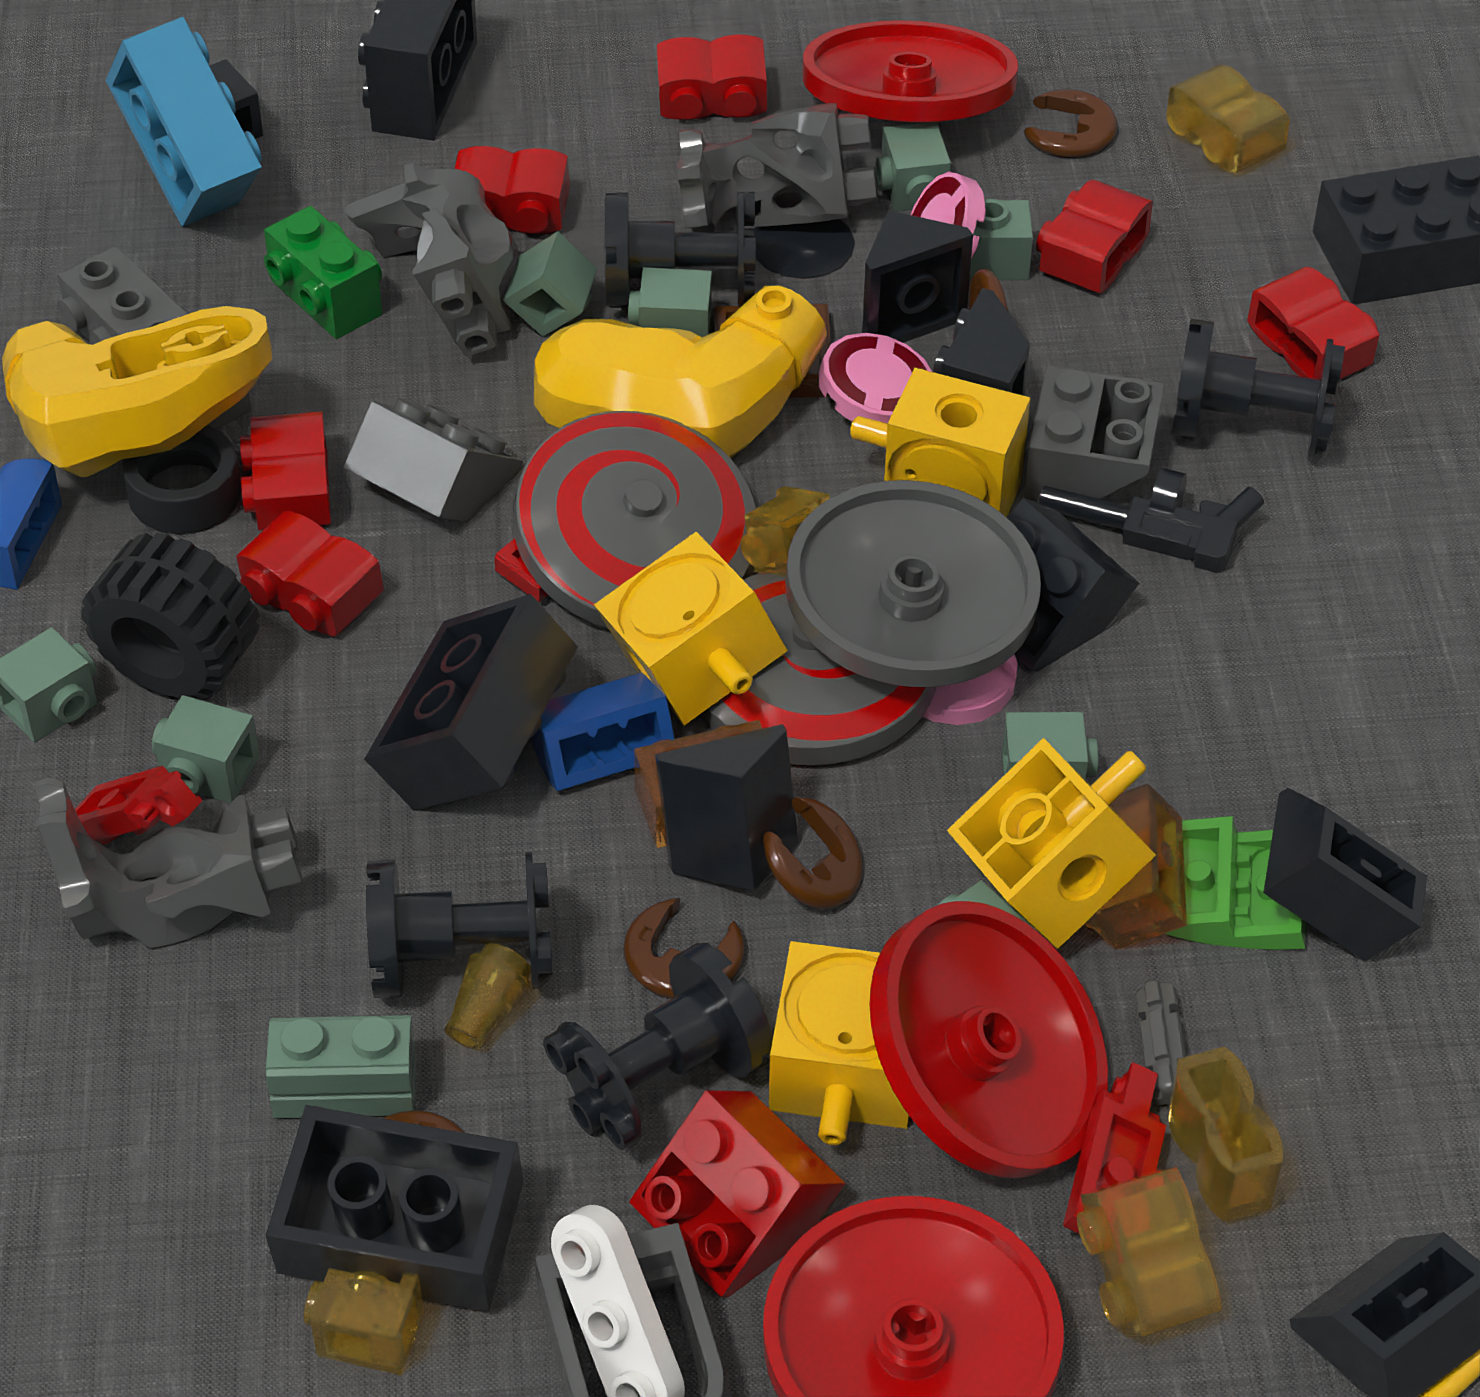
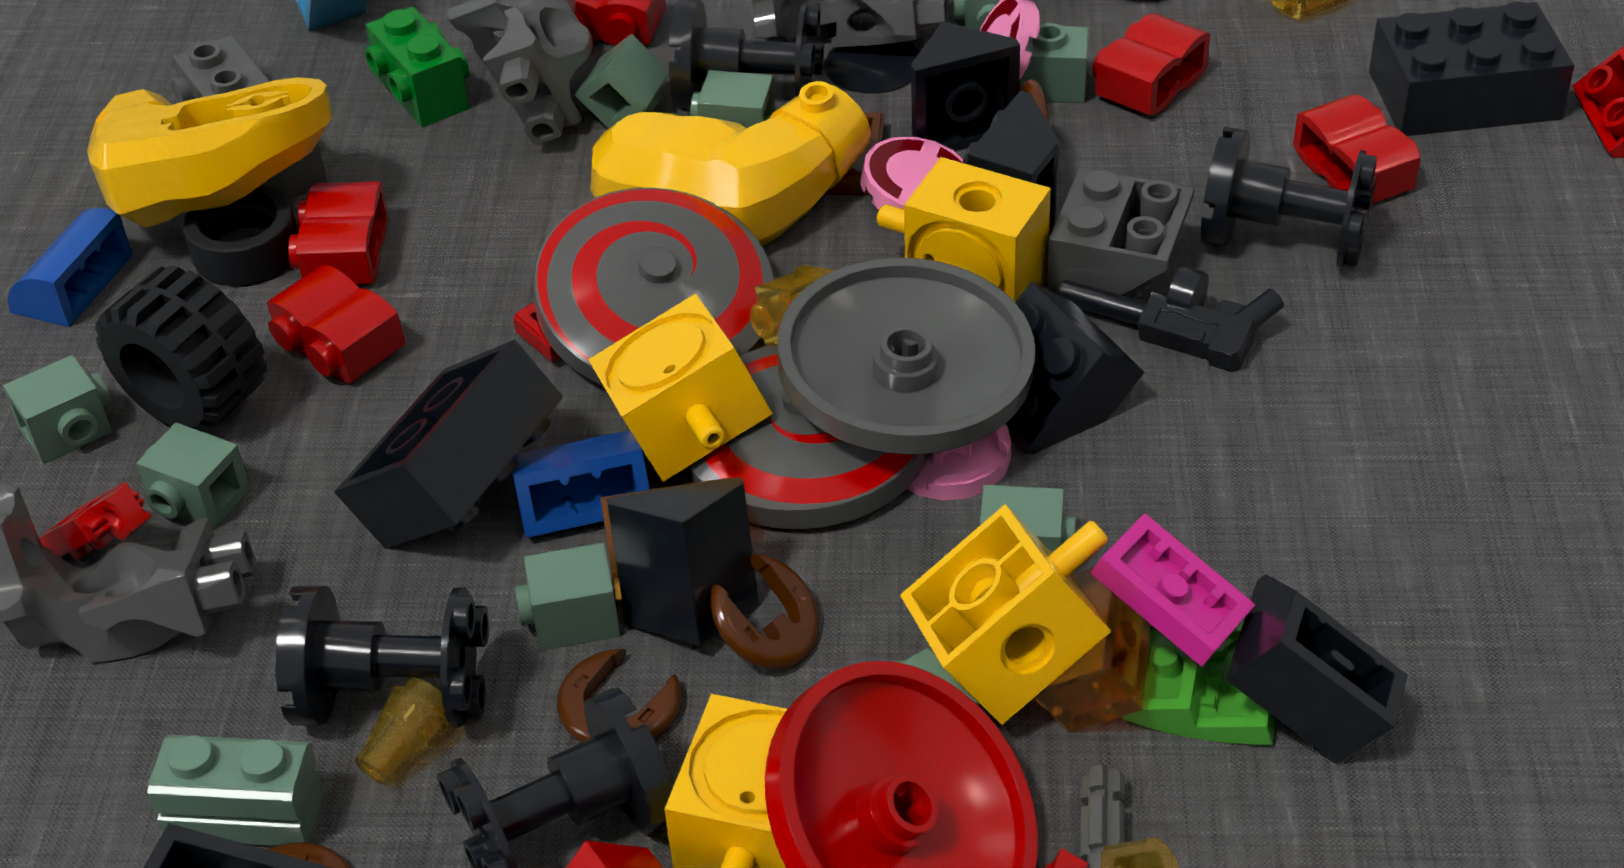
camera: 10 degrees right, 5 degrees down
(431, 458) = (471, 226): slope -> none
(618, 850) = (568, 597): none -> sand green brick
(1207, 810) = (1172, 589): none -> dark pink bracket

